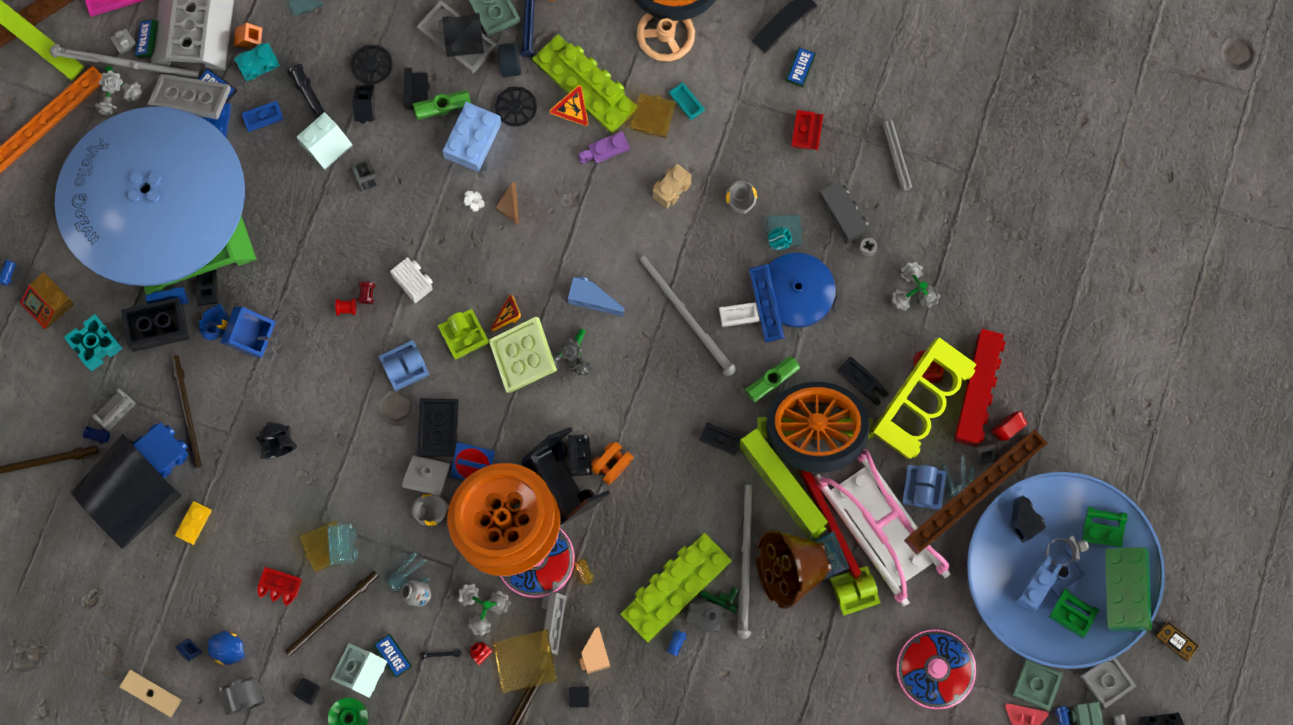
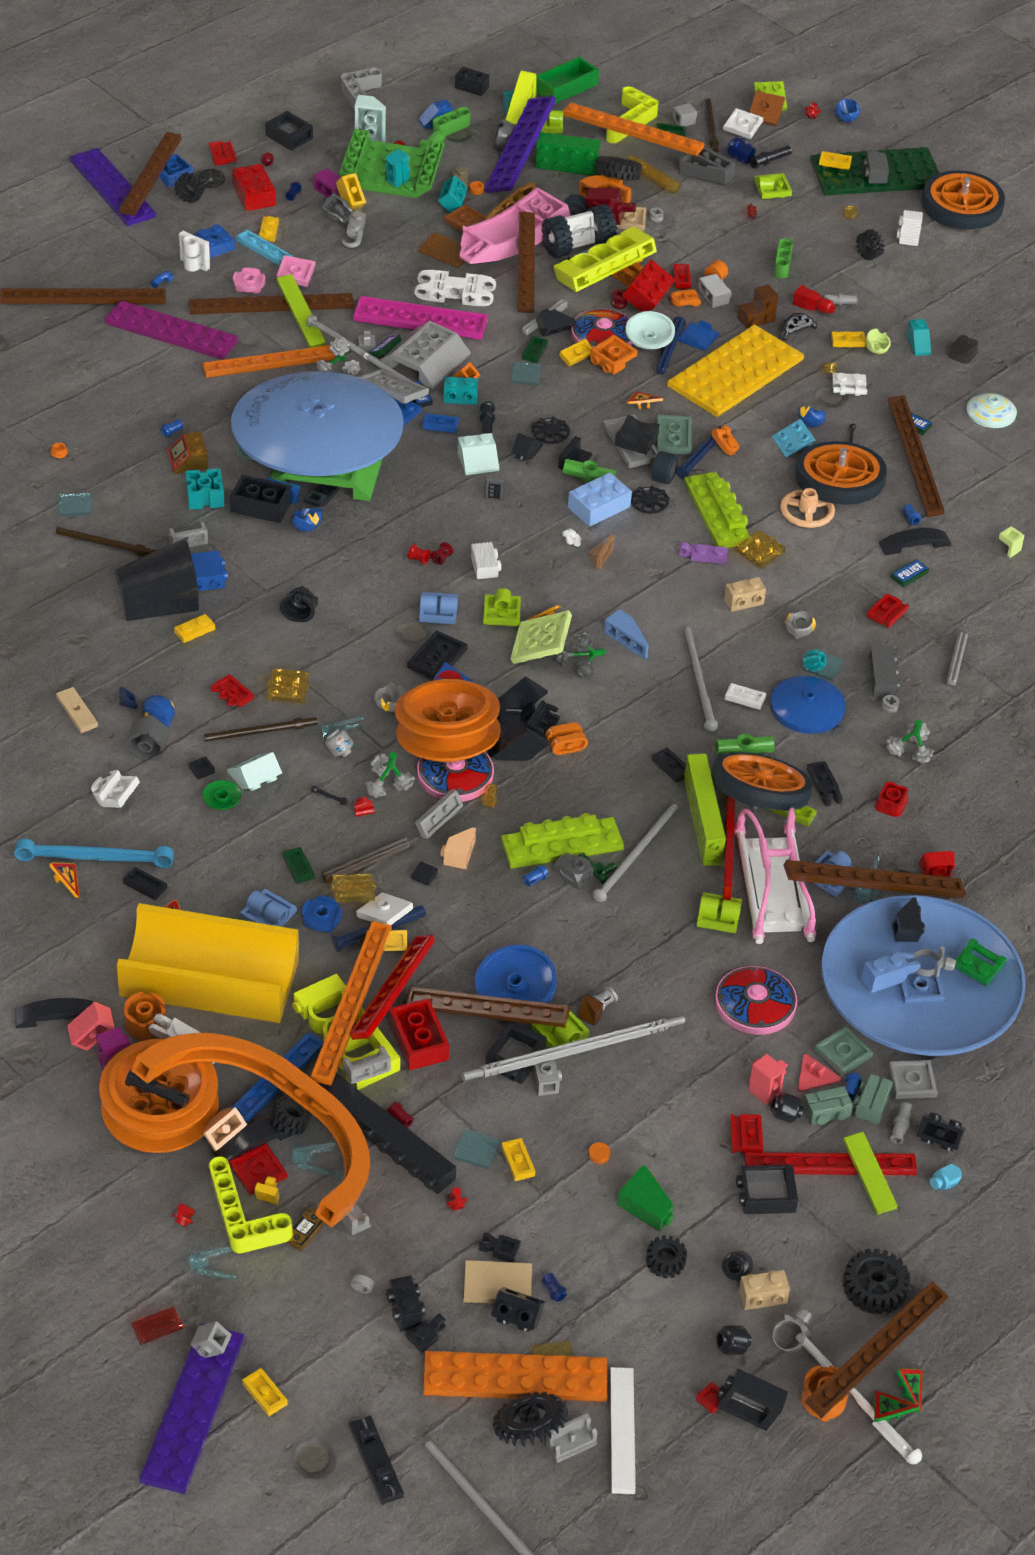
camera: 30 degrees right, 30 degrees down
(96, 434) = (159, 542): clear blue pin -> none
(178, 375) = (253, 541): dark brown bar -> none
(244, 331) = (329, 529): blue piece -> none
(341, 544) = (302, 682): clear light blue brick -> none
(393, 655) = (289, 778): tile -> none
(426, 475) = (403, 675): light grey plate -> none
(525, 661) = (396, 825): clear yellow piece -> none
(572, 107) = (695, 515): piece -> none
(686, 101) = (796, 553): teal tile -> none
(766, 303) = (774, 696): blue tile -> none
(790, 566) = (676, 859): reddish brown cone -> none
(834, 555) = (710, 874): piece -> none
(951, 360) = (836, 836): neon yellow fence -> none
(978, 388) = (927, 830): red brick -> none
(1072, 618) = (909, 1005): green plate -> none
(1128, 589) = (972, 1005): green piece -> none
(1177, 640) = (999, 1083): tile -> none

